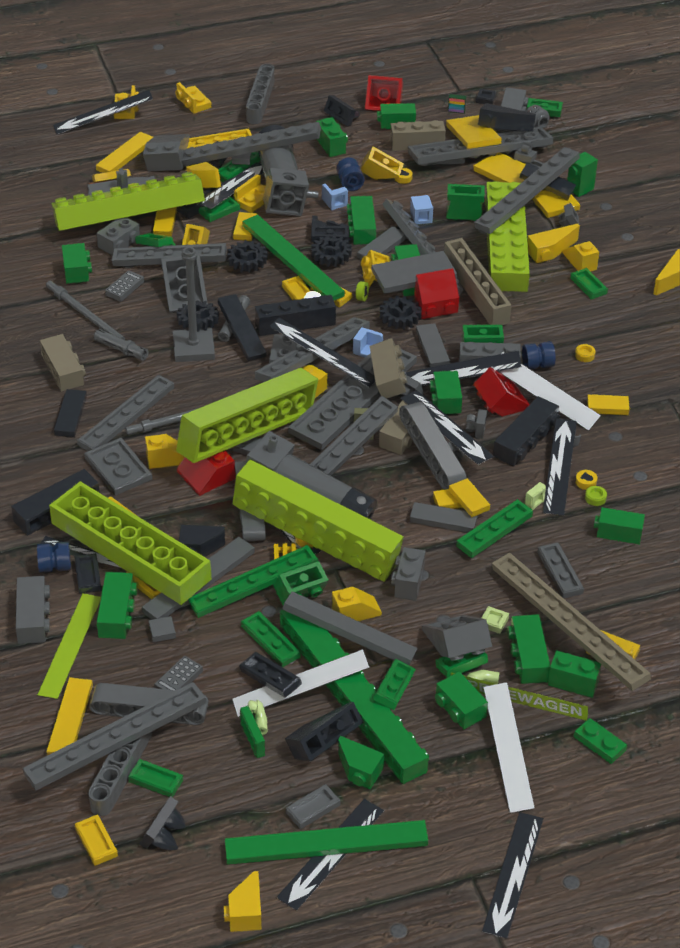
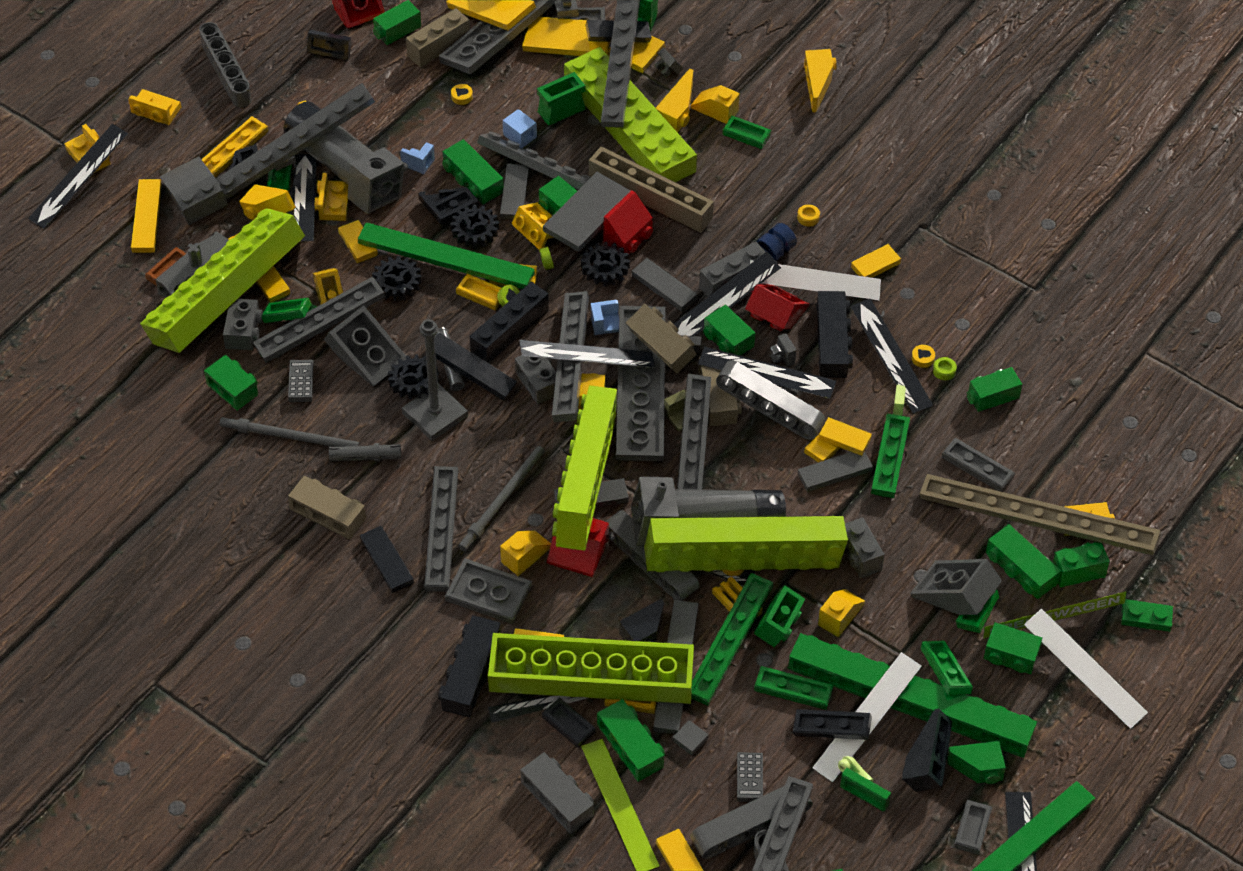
camera: 35 degrees left, 10 degrees up
(53, 557) = (525, 728): dark blue wheel -> none
(106, 176) = (161, 252): yellow tile -> none
(222, 209) = (320, 226): green tile -> none
(332, 137) = (345, 77): green brick -> none
(349, 628) = (862, 636): dark grey tile -> none
(350, 174) = (413, 121): dark blue wheel -> none
(380, 165) = (434, 95): yellow slope -> none
(483, 333) = (711, 251): green brick -> none
(485, 675) = (1003, 612): yellowish green arm -> none
(495, 619) = (965, 548): yellowish green tile -> none
(513, 875) = (1179, 784): black sticker -> none

